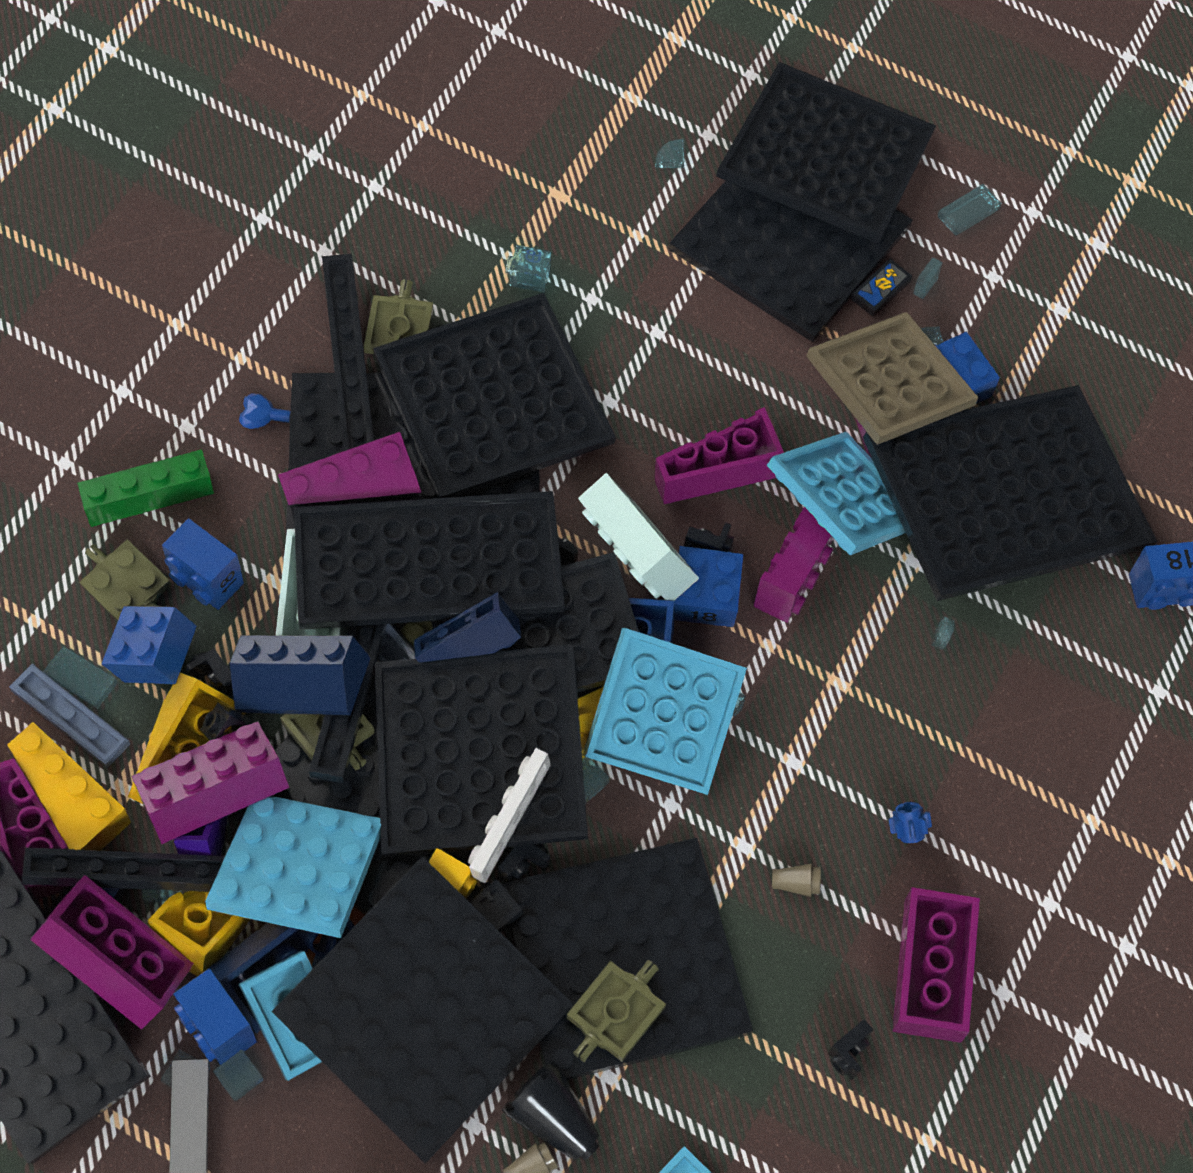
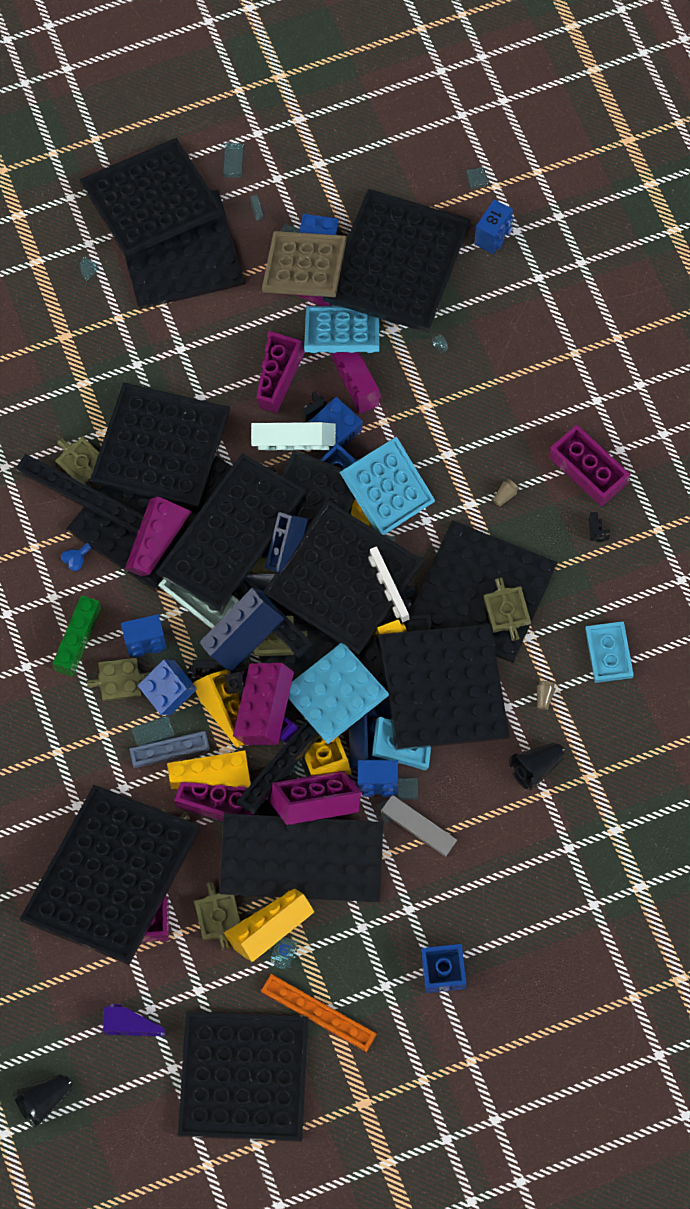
camera: 45 degrees left, 5 degrees up
(529, 268) = (99, 379): clear light blue brick -> none
(554, 1113) = (528, 667): black cone -> none
(881, 287) = (242, 231): tile -> none
(910, 822) = (517, 426): blue gear -> none

